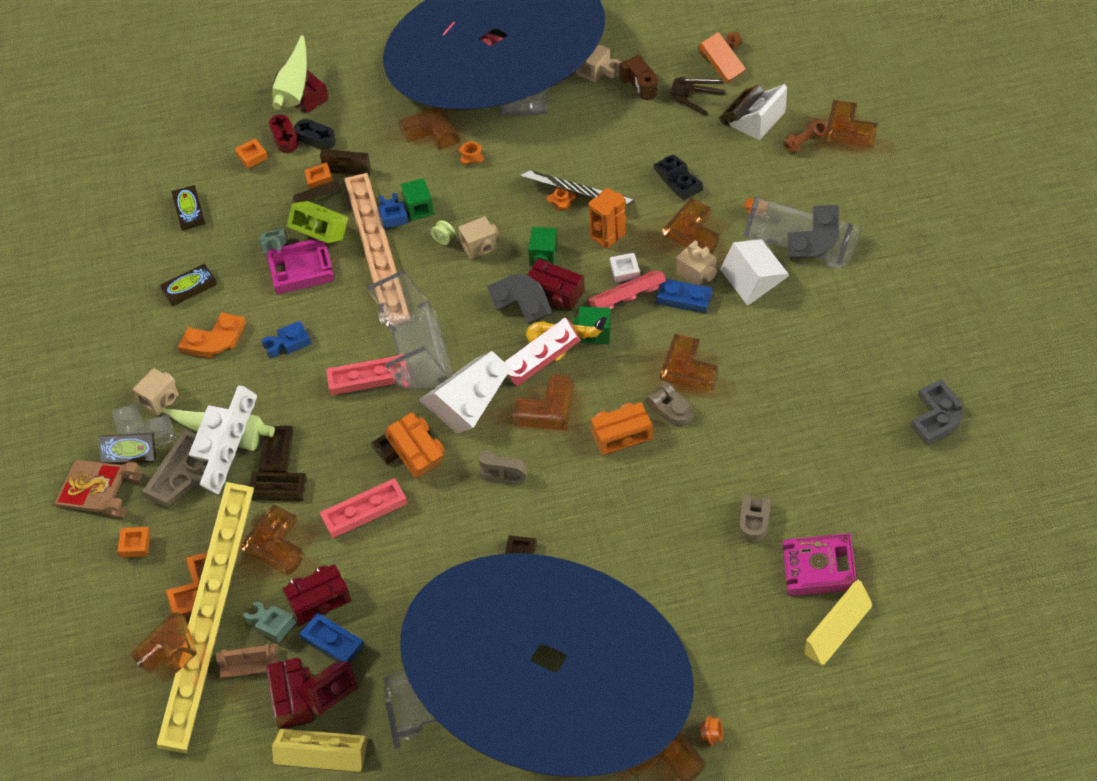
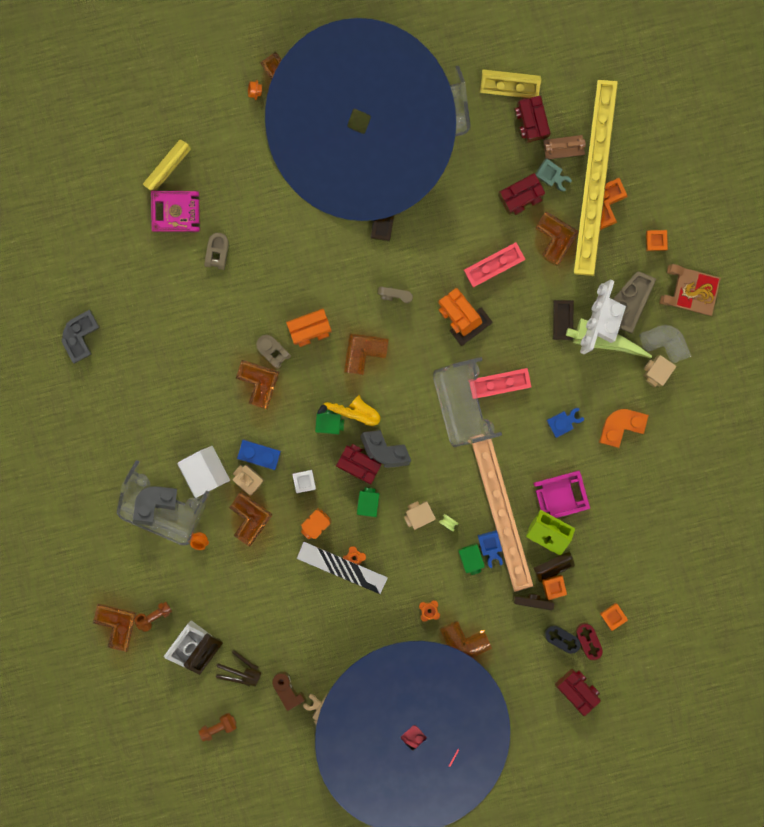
camera: 175 degrees right, 35 degrees up
(127, 447) = (673, 321): tile -> none
(167, 641) = (619, 153): clear orange brick -> none
(188, 207) = (660, 561): tile -> none
(188, 284) = (649, 479): tile -> none
(273, 240) = (585, 518): sand green plate -> none
(276, 490) = (557, 288): dark brown tile -> none
(291, 79) = (585, 683): yellowish green piece -> none
(328, 687) = (508, 120): dark red slope -> none
(331, 639) = (508, 160): blue plate -> none
(467, 393) = (421, 357): white wedge -> none
(542, 351) = (367, 394): plate -> none
(628, 290) = (303, 457): coral plate -> none
(677, 178) = (259, 577): black slope -> none
(722, 57) = (216, 708): orange tile -> none

